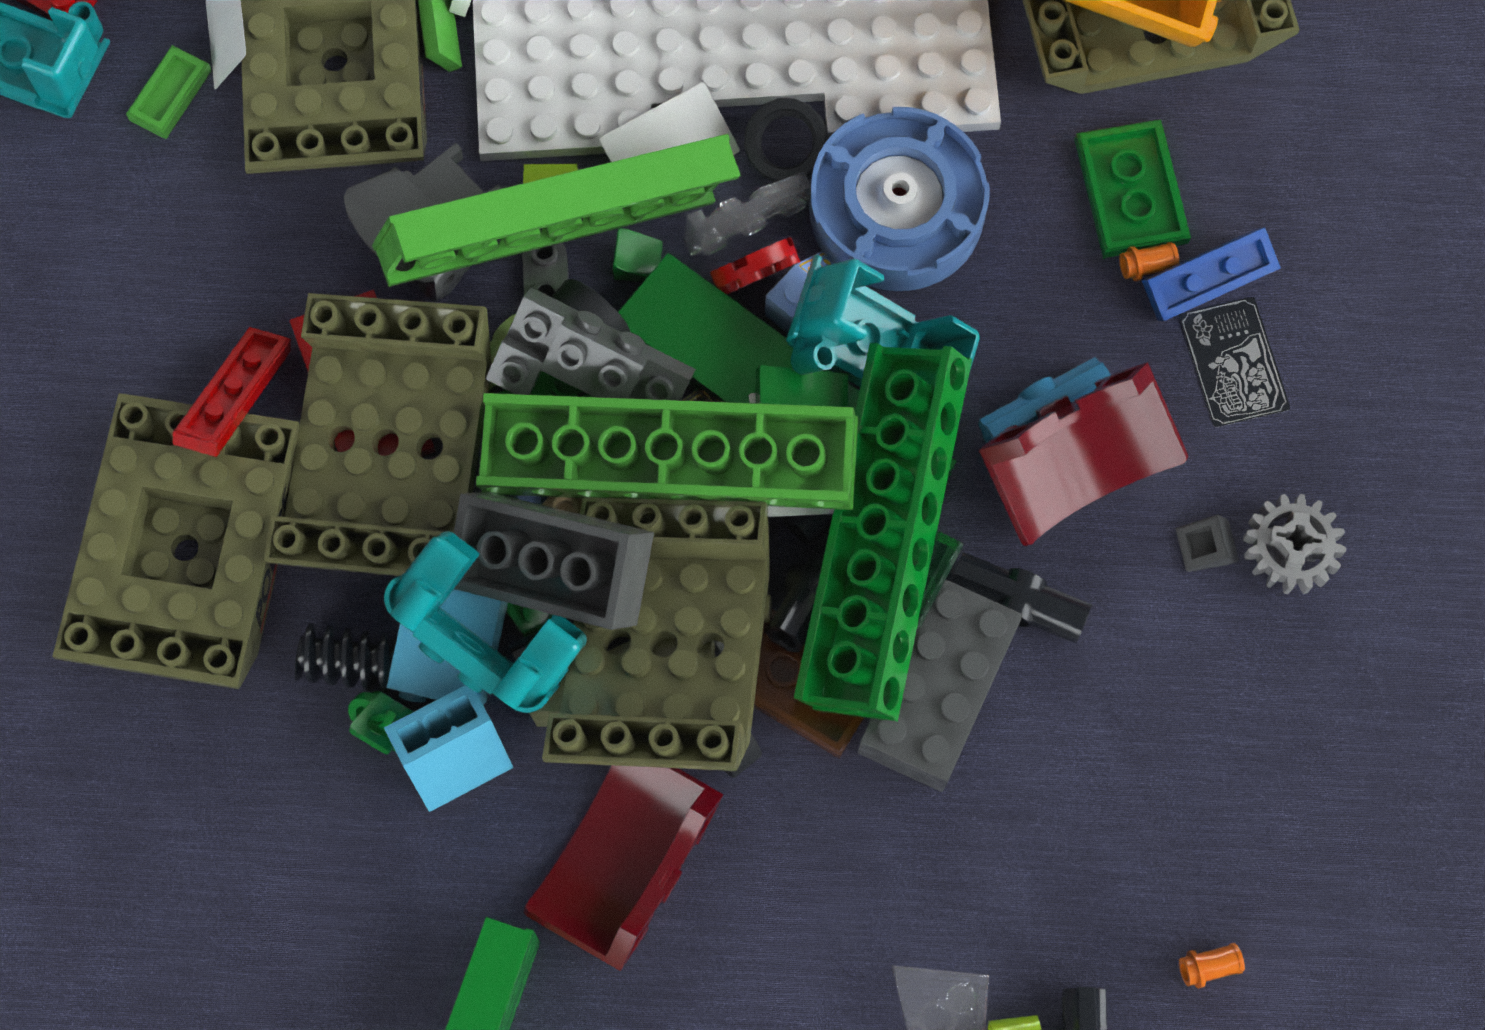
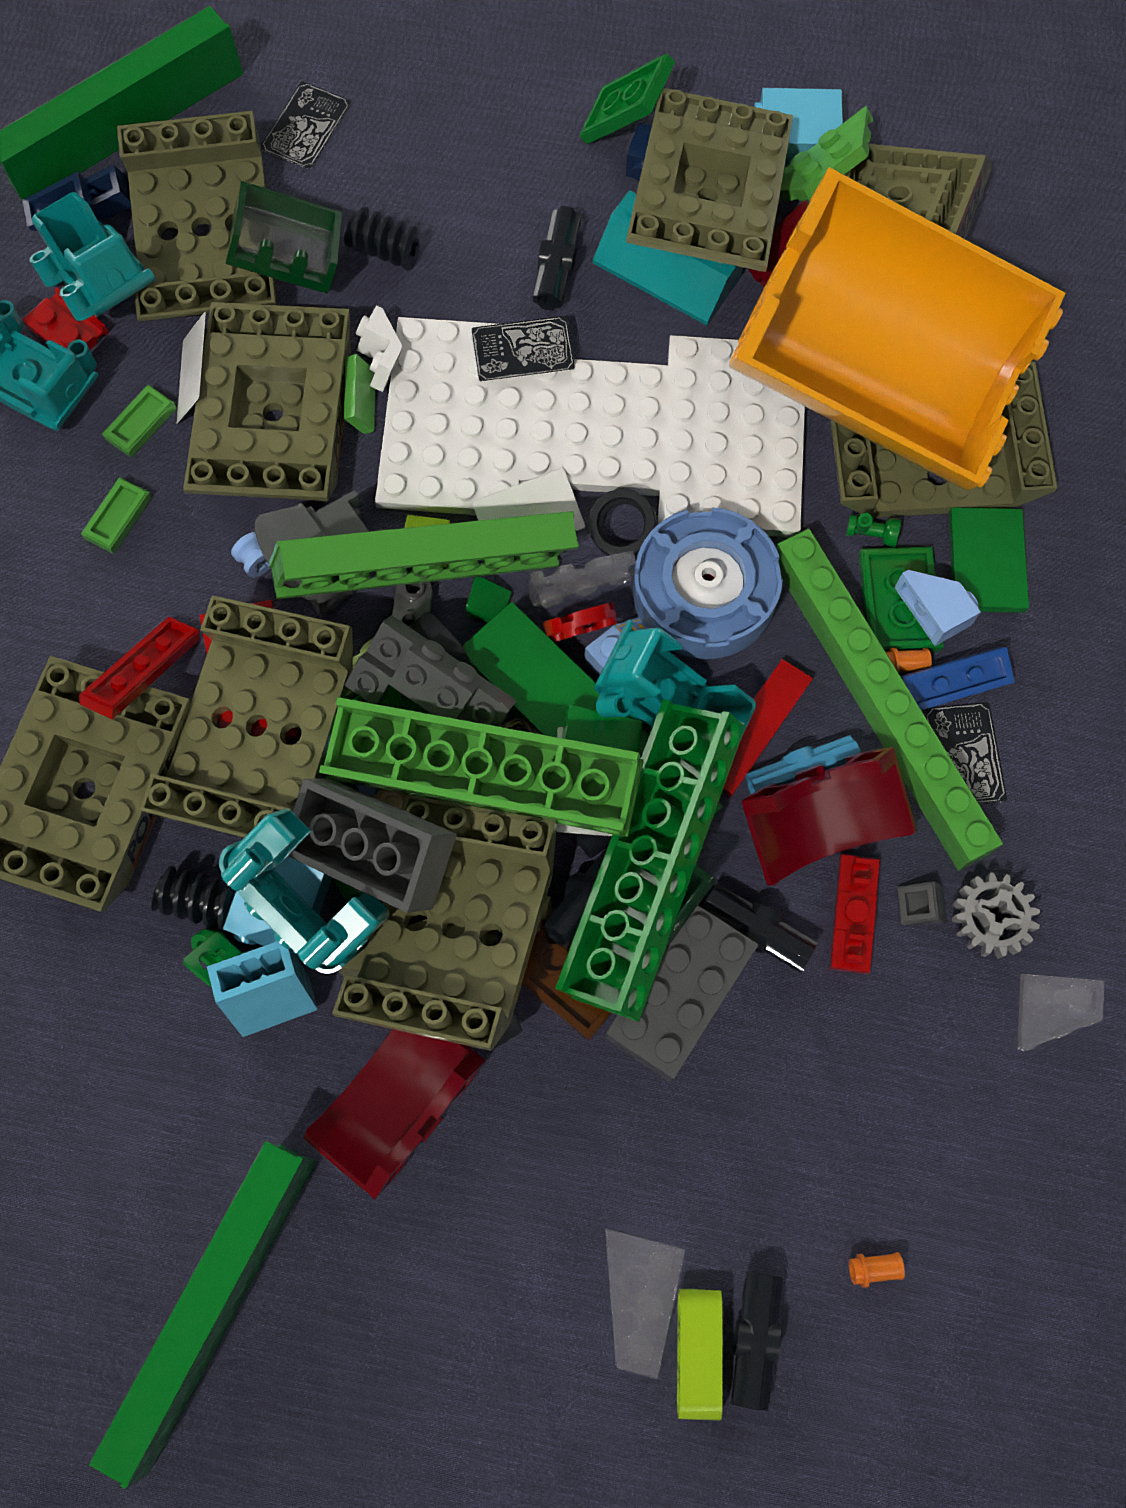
camera: 10 degrees right, 0 degrees up
(161, 212) = (116, 515): none -> bright green tile
(340, 237) = (249, 553): none -> light blue wheel
(1000, 334) = (773, 706): none -> red tile
(1079, 105) = (864, 526): none -> green piece
(1129, 566) = (854, 914): none -> red plate
(1130, 309) = (886, 701): none -> bright green brick
(1177, 187) = (938, 604): none -> light blue slope
(1229, 126) = (990, 557): none -> green tile
(1378, 639) = (1056, 1007): none -> clear wing

